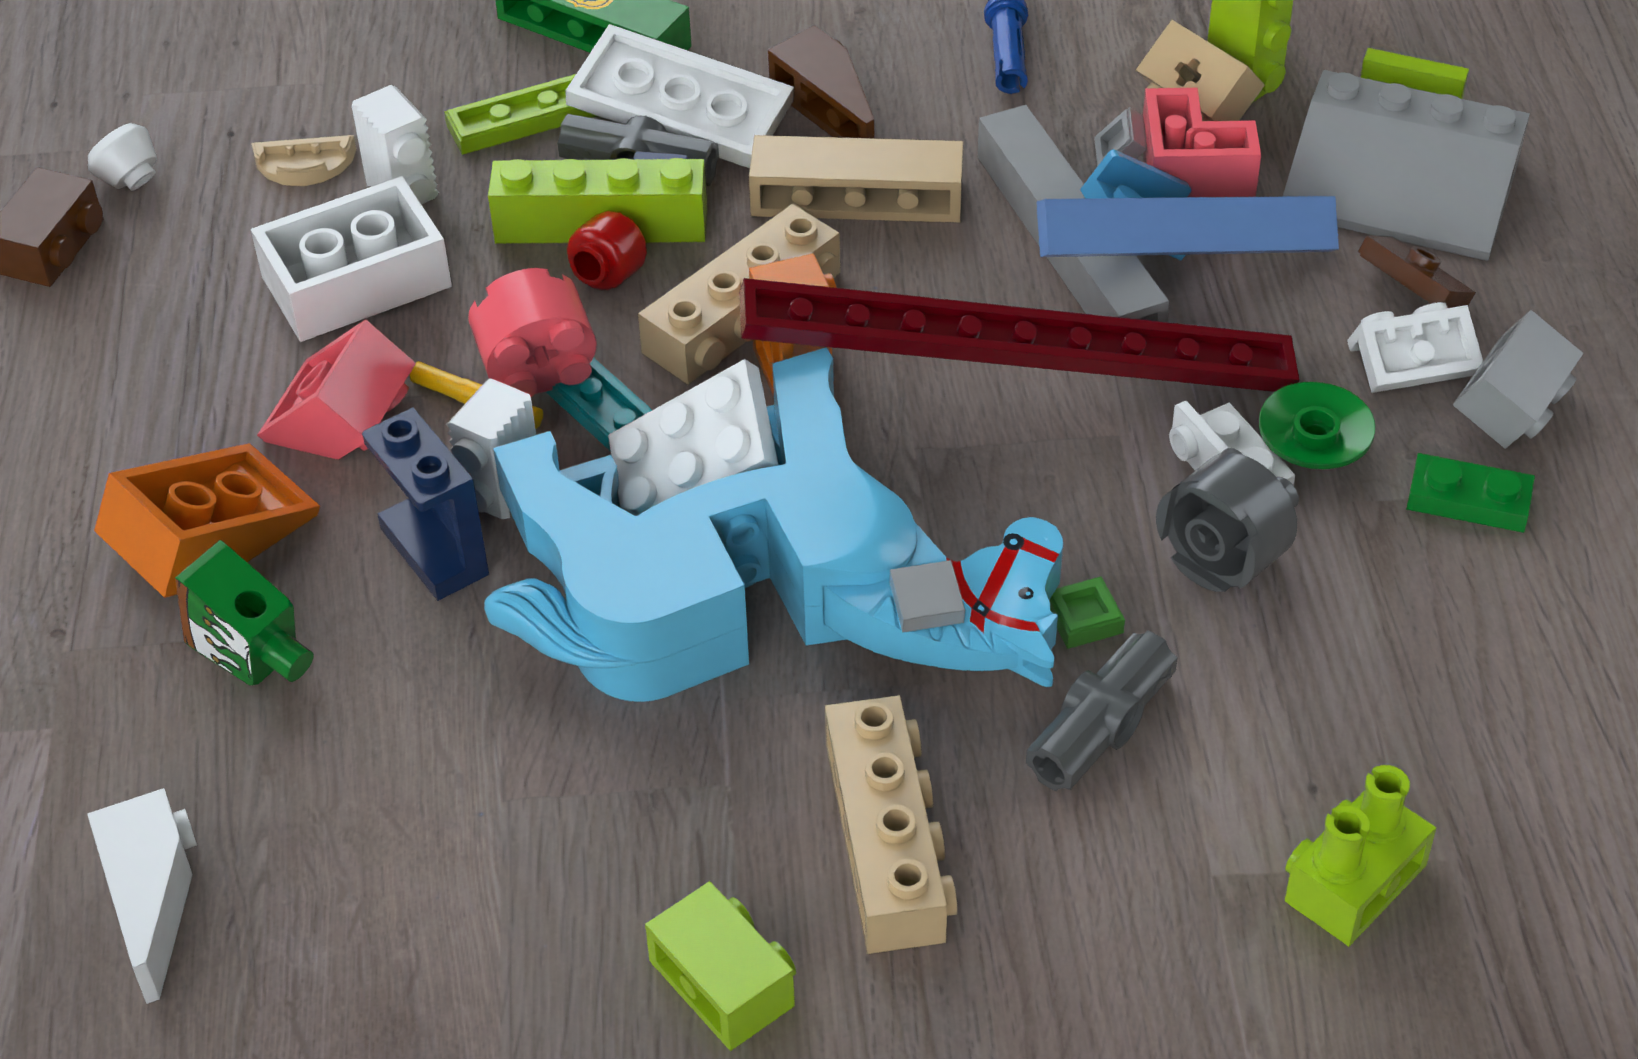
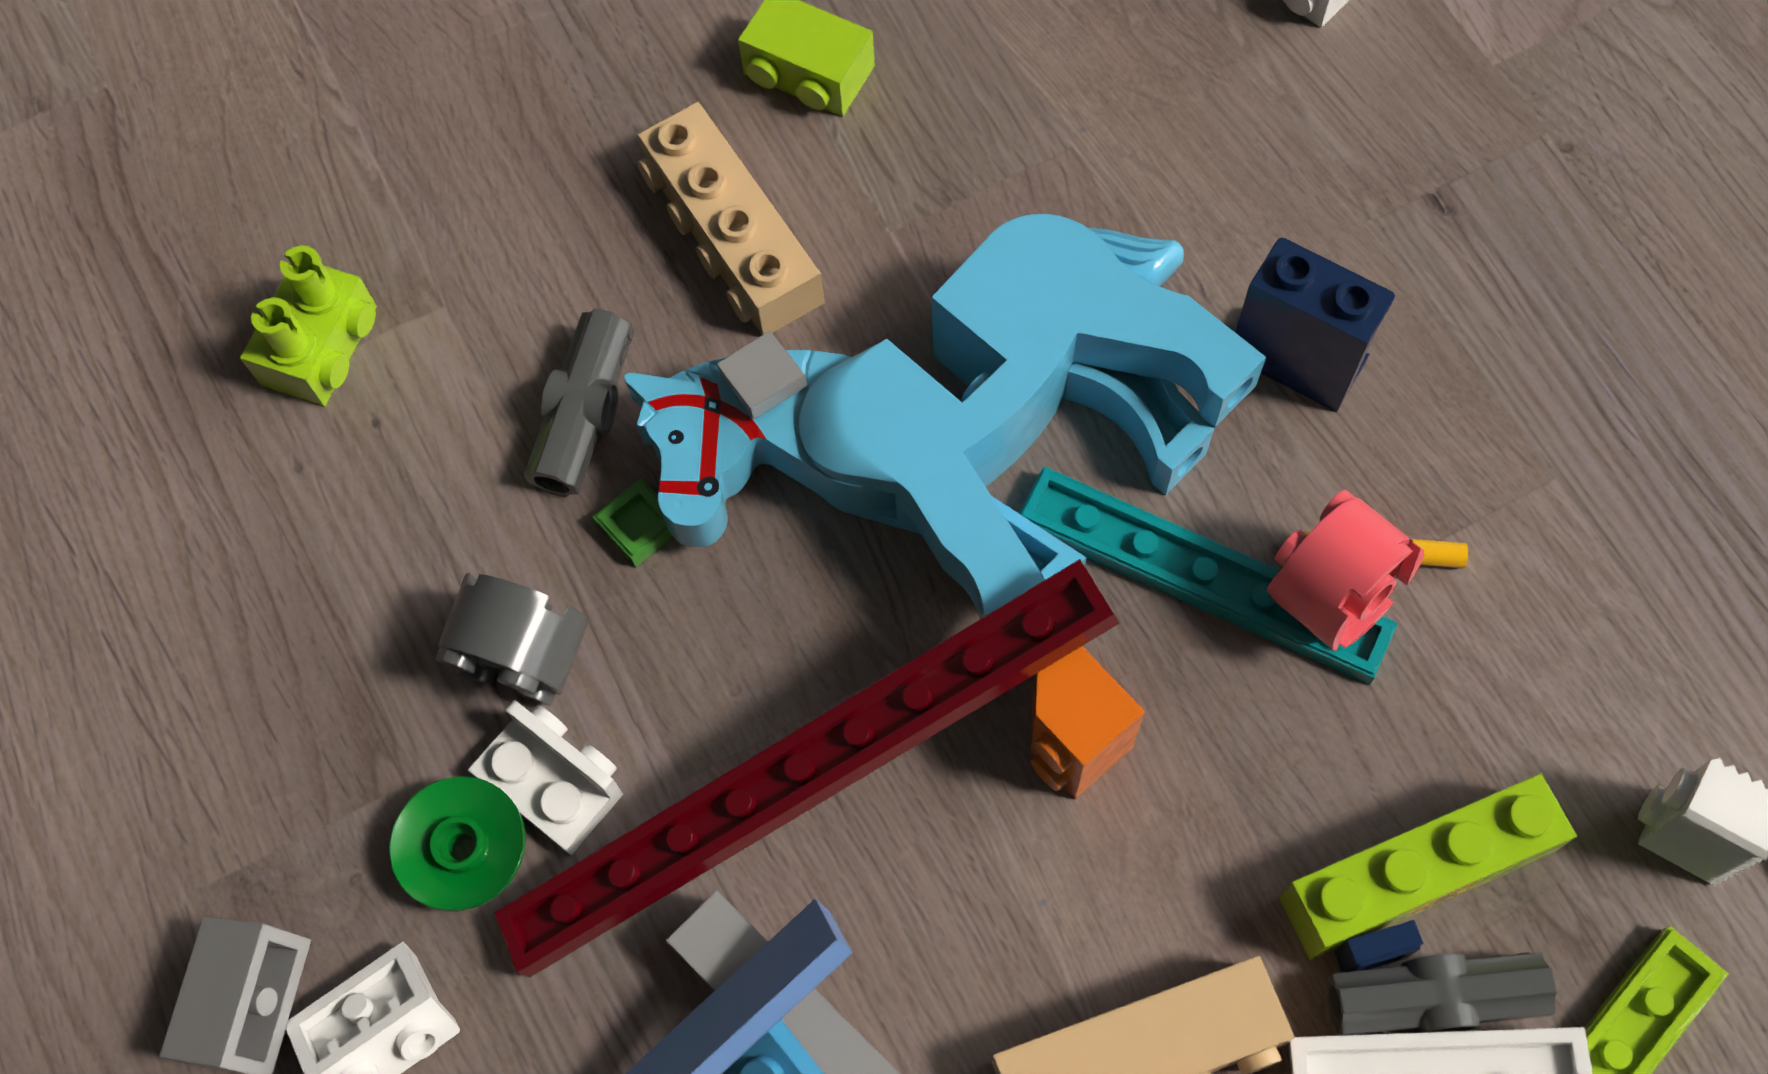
camera: 160 degrees right, 20 degrees up
(178, 508) = (1528, 284): orange slope -> none
(239, 618) = (1394, 167): green torso -> none
(340, 394) = (1509, 467): coral slope -> none
(351, 258) = (1636, 642): white brick -> none
(489, 420) = (1292, 429): white brick -> none
(606, 250) = (1367, 794): red head -> none
(694, 439) = (1086, 489): white plate -> none
(700, 317) = (1176, 793): tan brick -> none
(1471, 492) = (278, 835): green plate -> none

